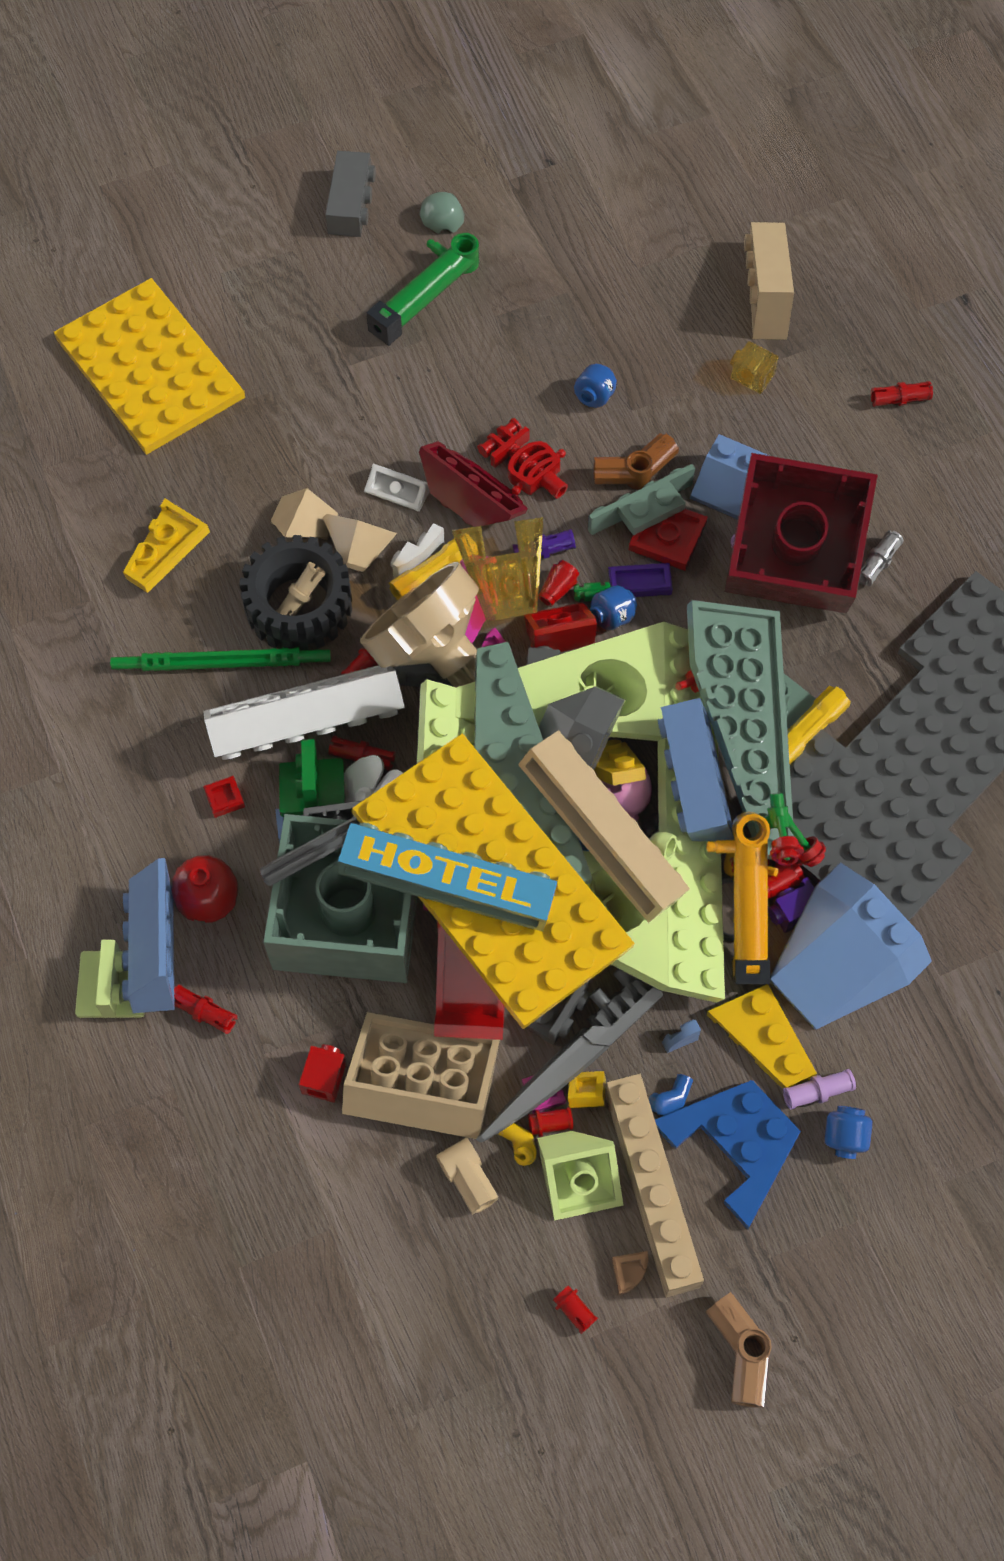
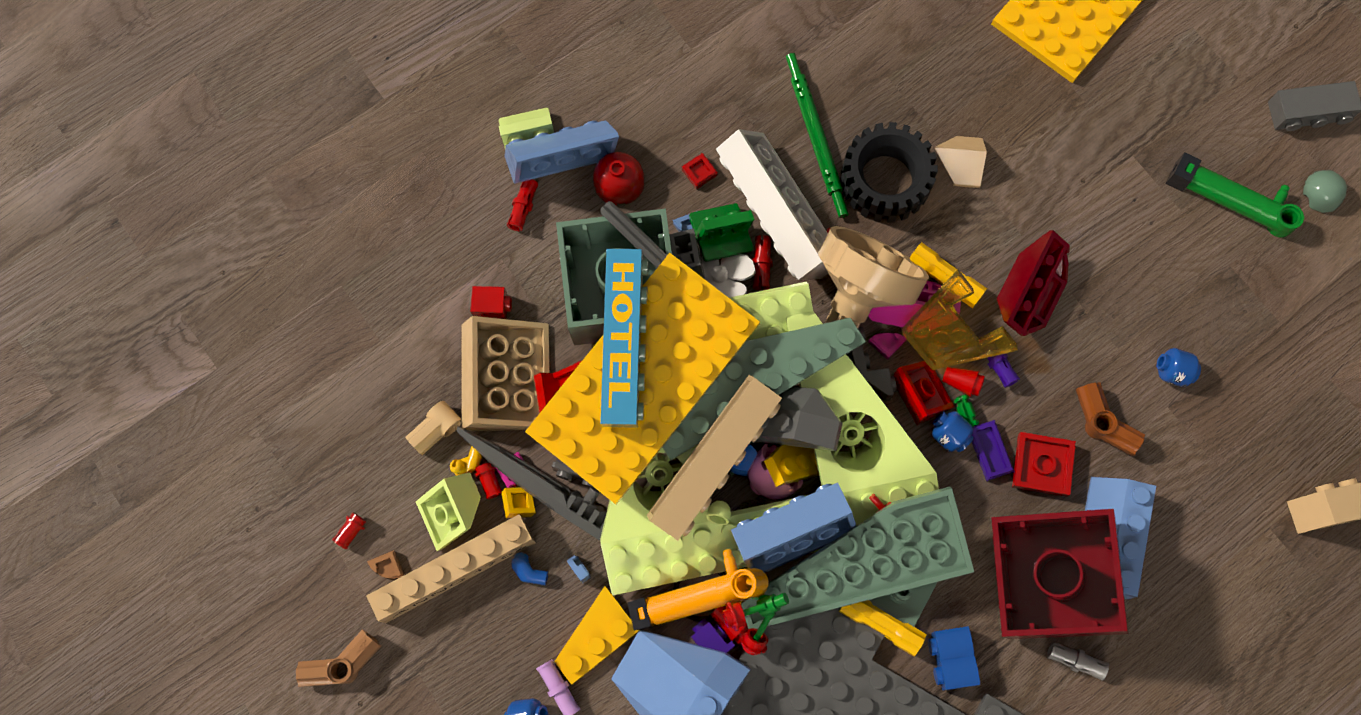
camera: 80 degrees right, 10 degrees up
(166, 544) = (910, 64): yellow wing -> none
(301, 590) = (889, 174): tan pin -> none
(357, 541) = (955, 207): tan slope -> none
(396, 487) = (1021, 225): white slope -> none
(413, 555) = (967, 264): white slope -> none
(535, 458) = (1075, 337): red torso -> none
(646, 506) = (1064, 440): sand green bracket -> none
(747, 1131) = (512, 638): blue wing -> none
(754, 366) = (1250, 506): clear yellow brick -> none
(858, 667) = (954, 658): none -> blue brick
(901, 393) = (1269, 654): red pin -> none

